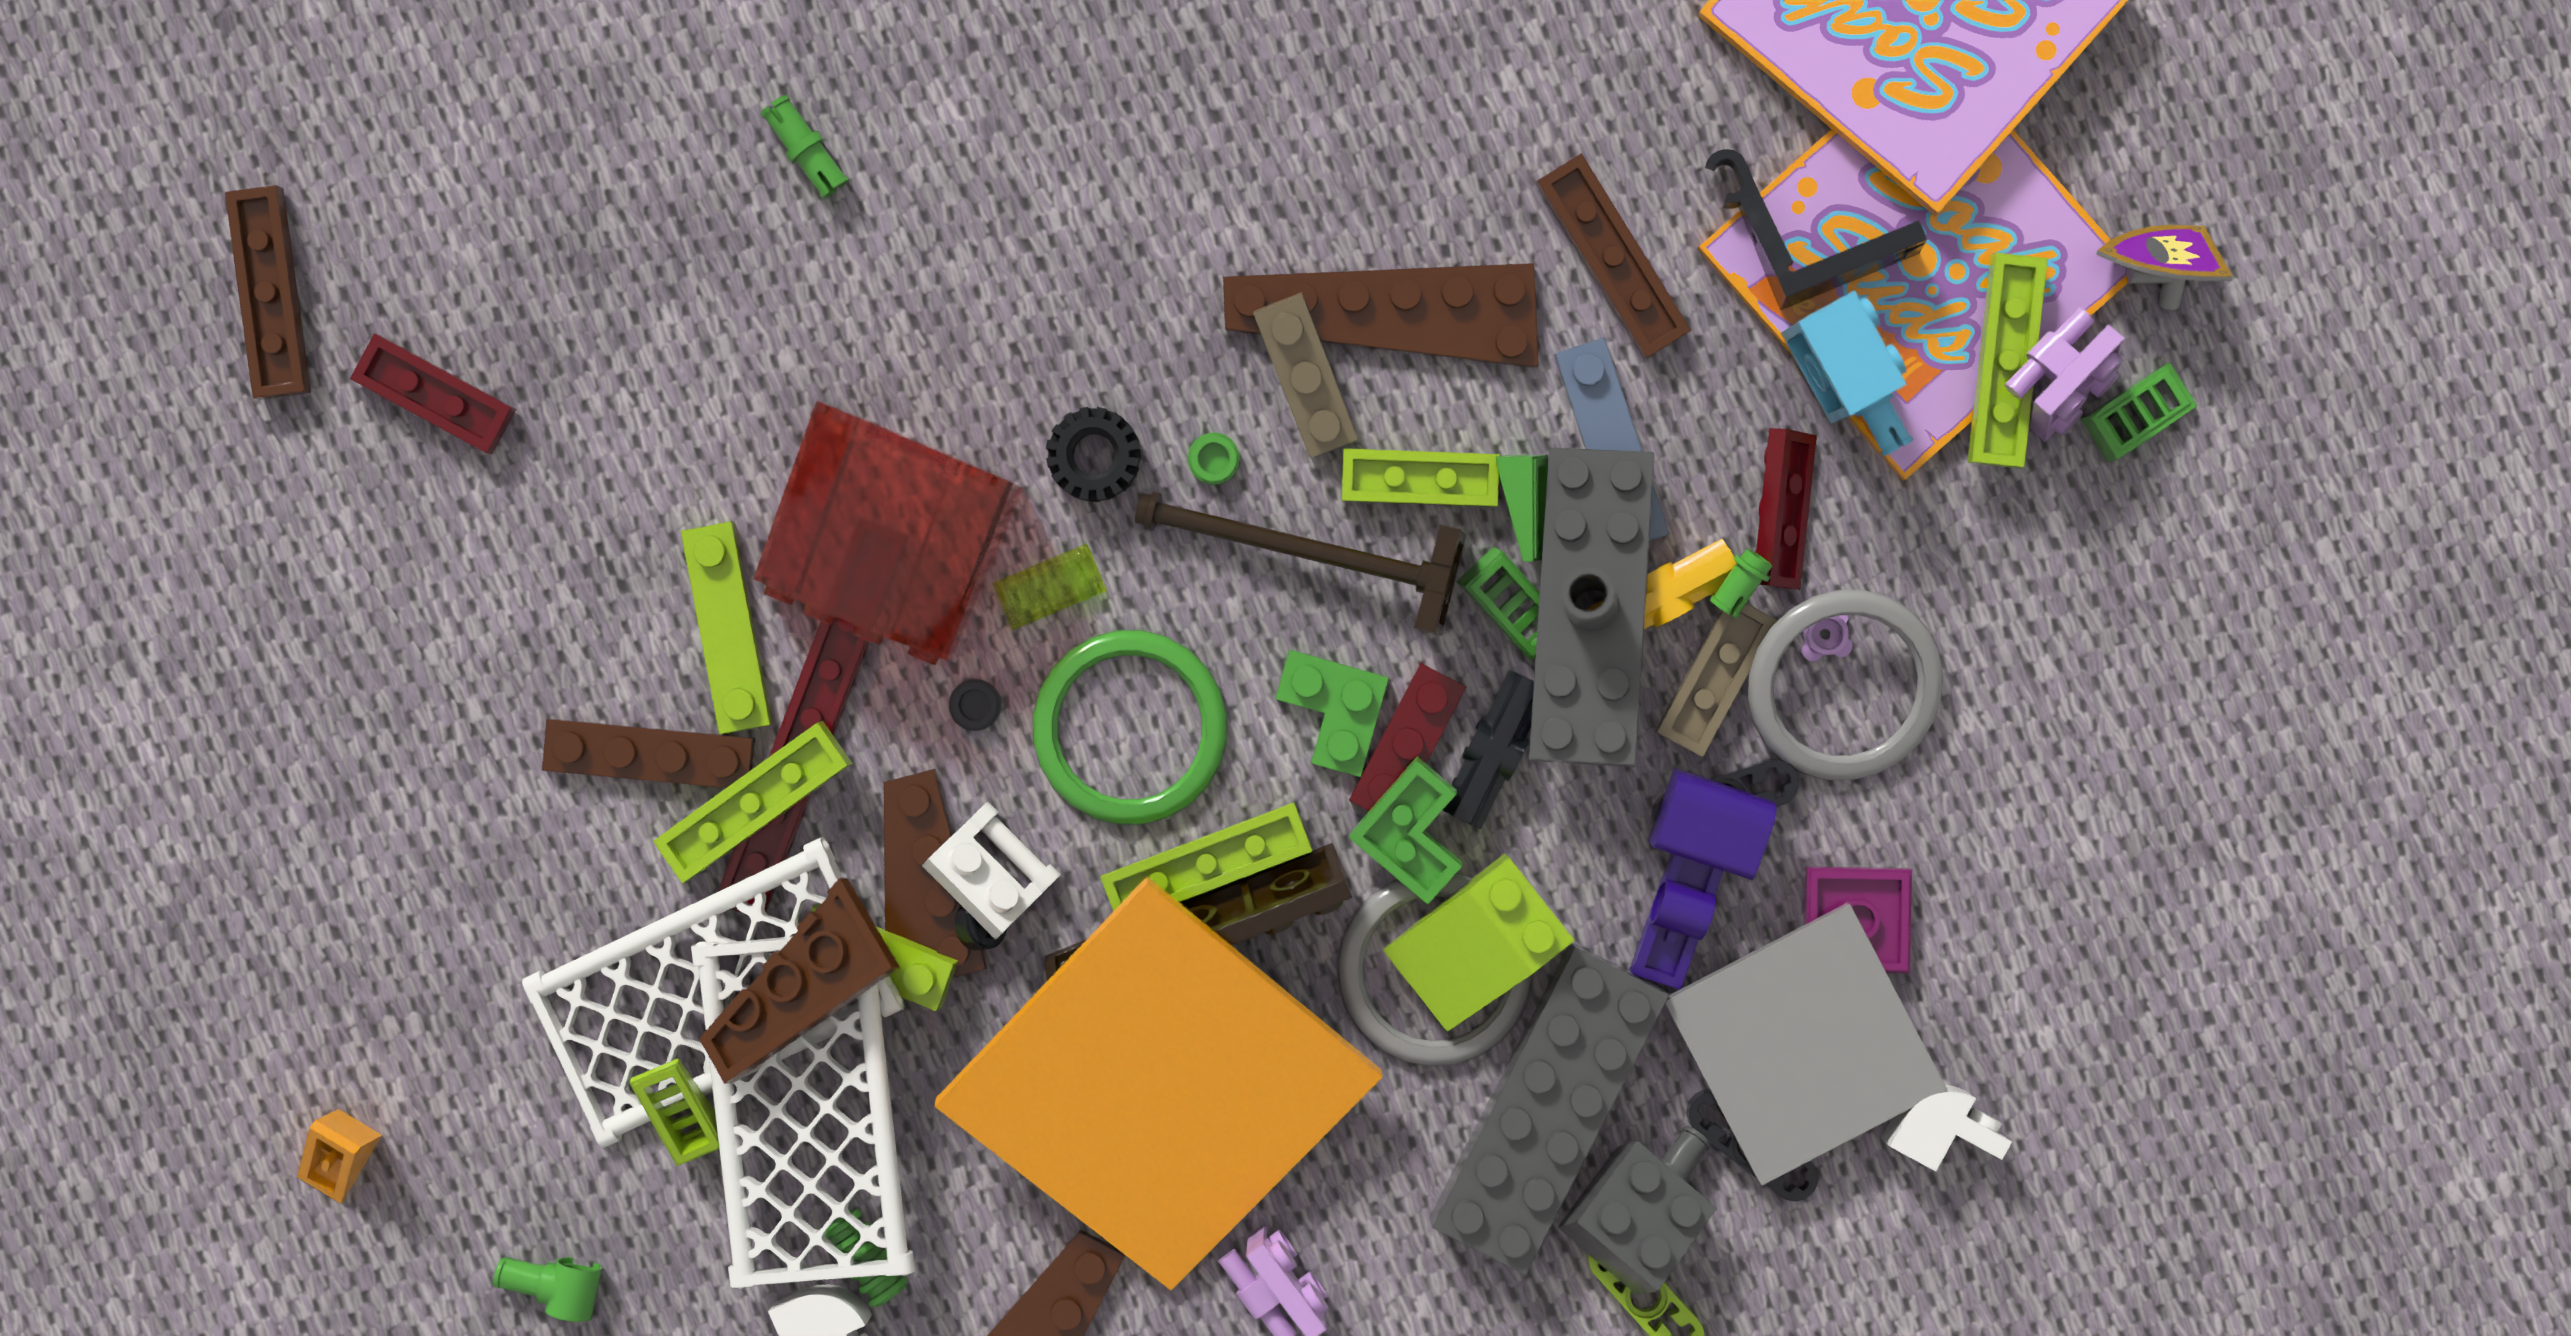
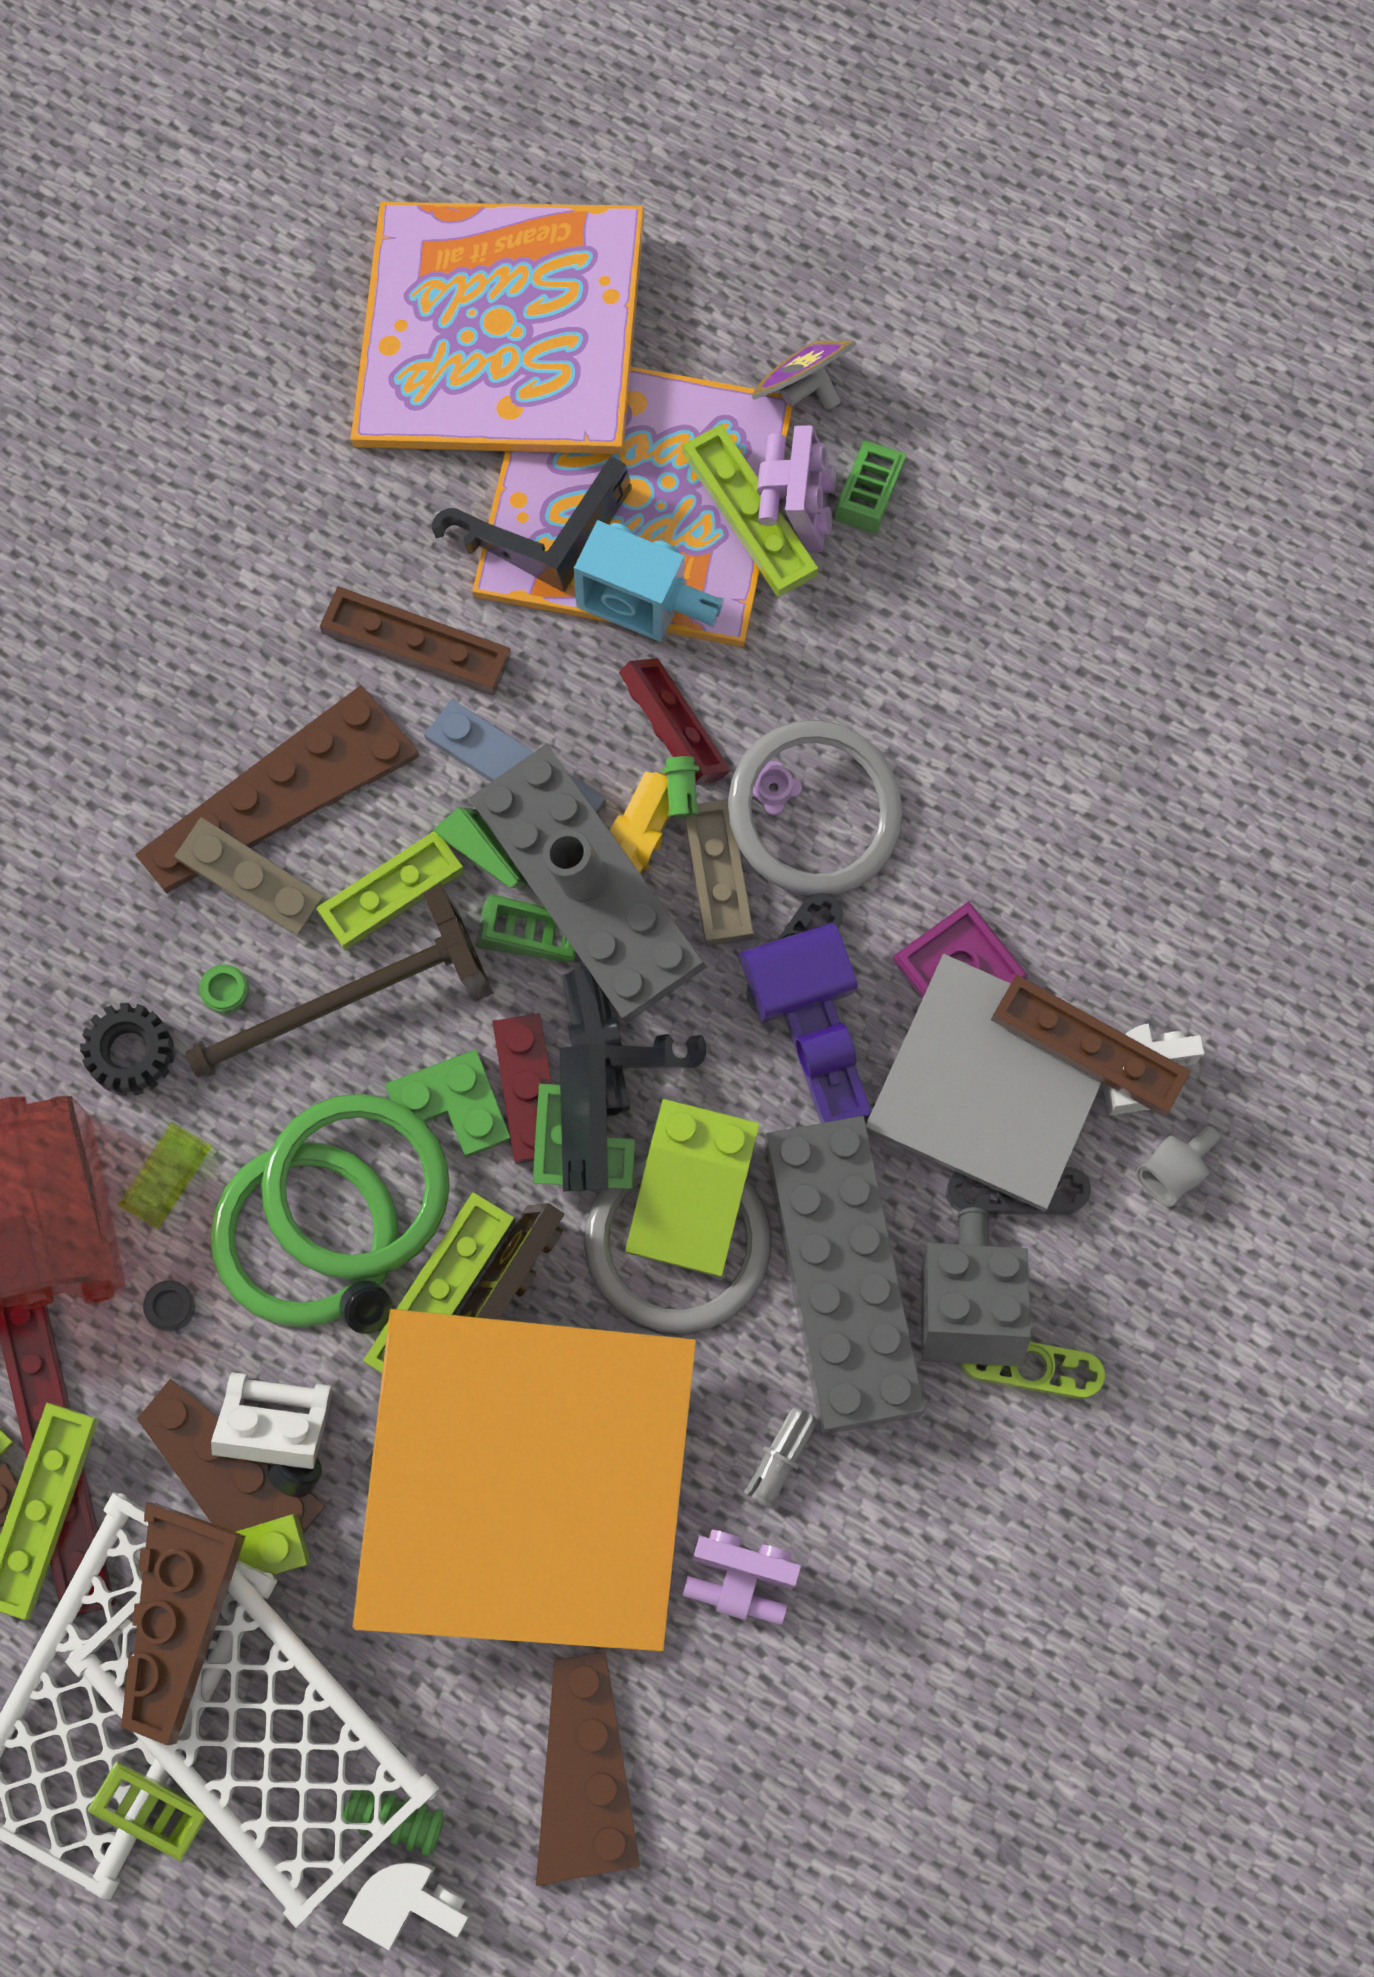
camera: 45 degrees left, 15 degrees down
(1118, 703) = (379, 1261): none -> bright green wedge
(1135, 831) = (365, 1307): none -> black tile
(1382, 1212) = (781, 1457): none -> light grey axle
(1445, 807) = (585, 1101): none -> black hinge
(1902, 1229) = (1177, 1166): none -> light grey piece
(1909, 1084) = (1091, 1045): none -> reddish brown plate

